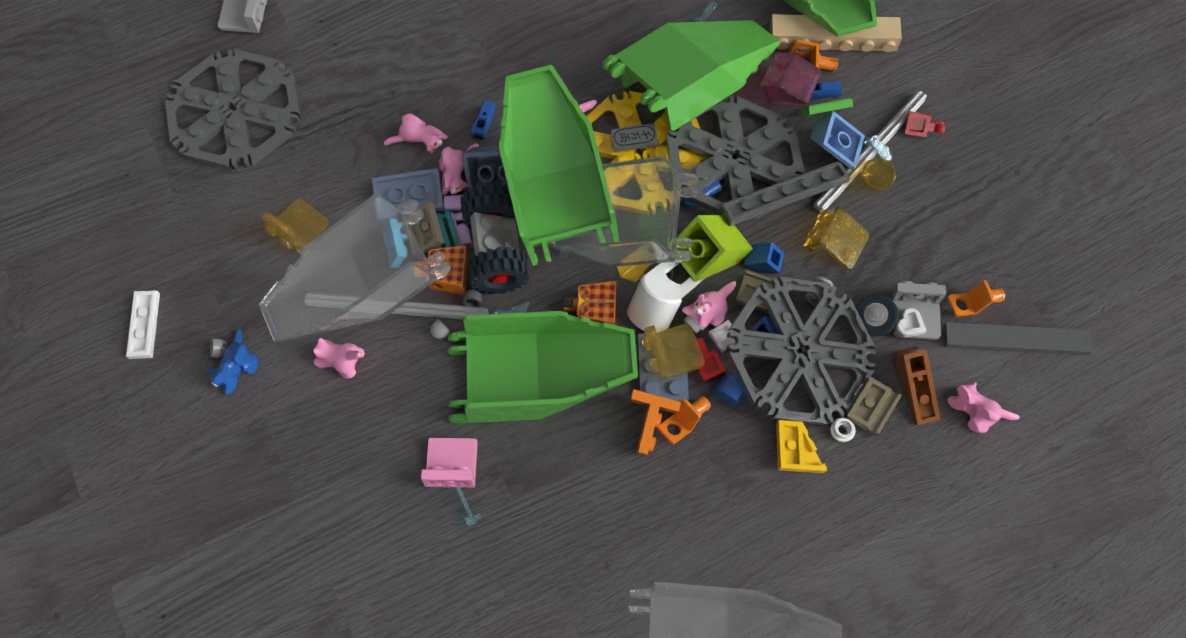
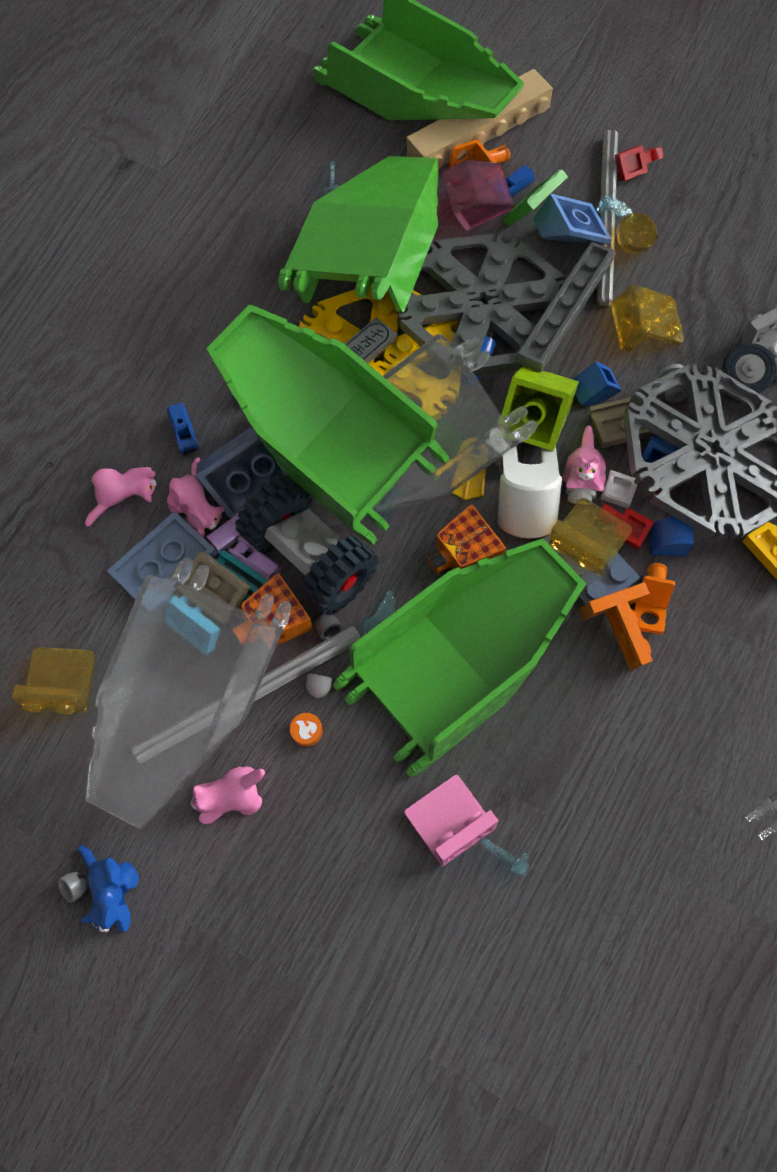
camera: 35 degrees left, 0 degrees up
(412, 351) = (306, 729): none -> orange tile

